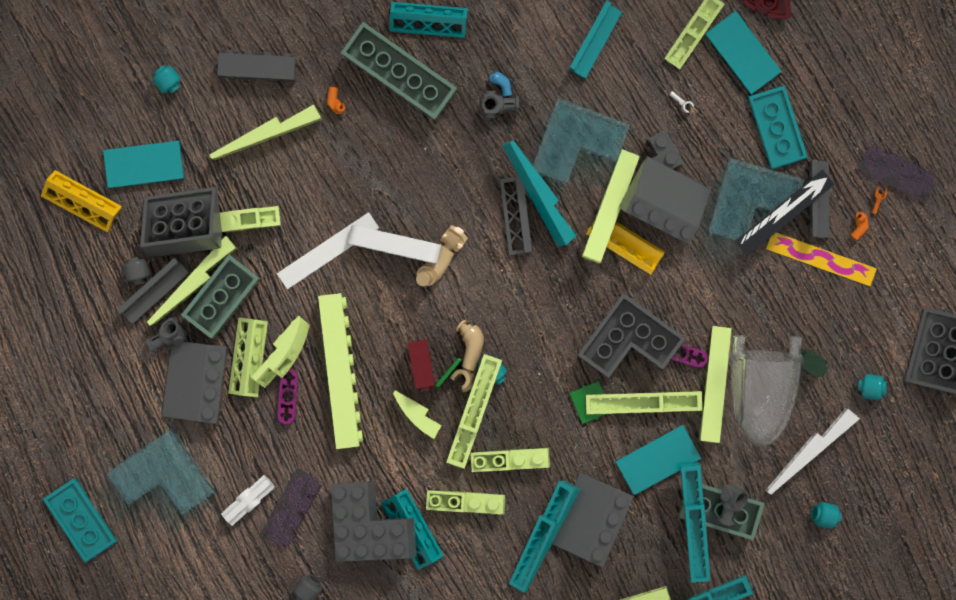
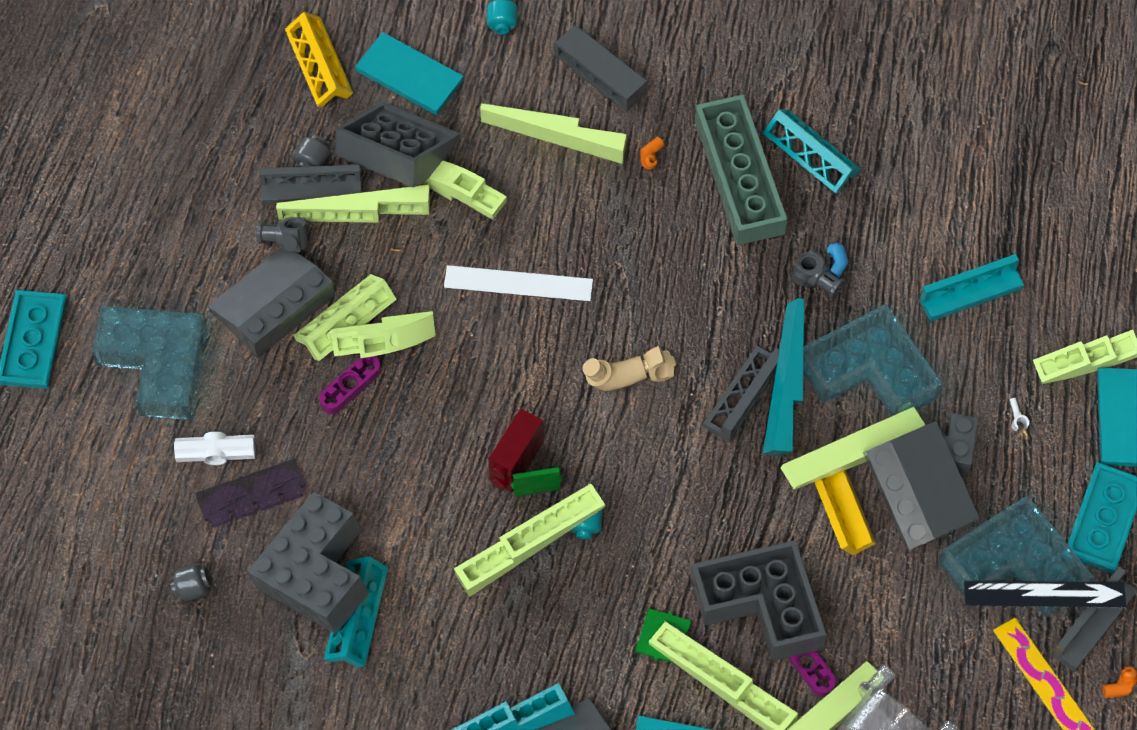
camera: 35 degrees right, 25 degrees down
(221, 297) = (371, 237): sand green brick -> none
(339, 371) = (424, 398): yellowish green brick -> none
(394, 244) = (592, 319): white beam -> none
(416, 413) = (467, 502): yellowish green slope -> none
(465, 502) = (437, 628): yellowish green slope -> none
(474, 343) = (592, 471): tan piece -> none
(510, 459) = (524, 623): yellowish green slope -> none

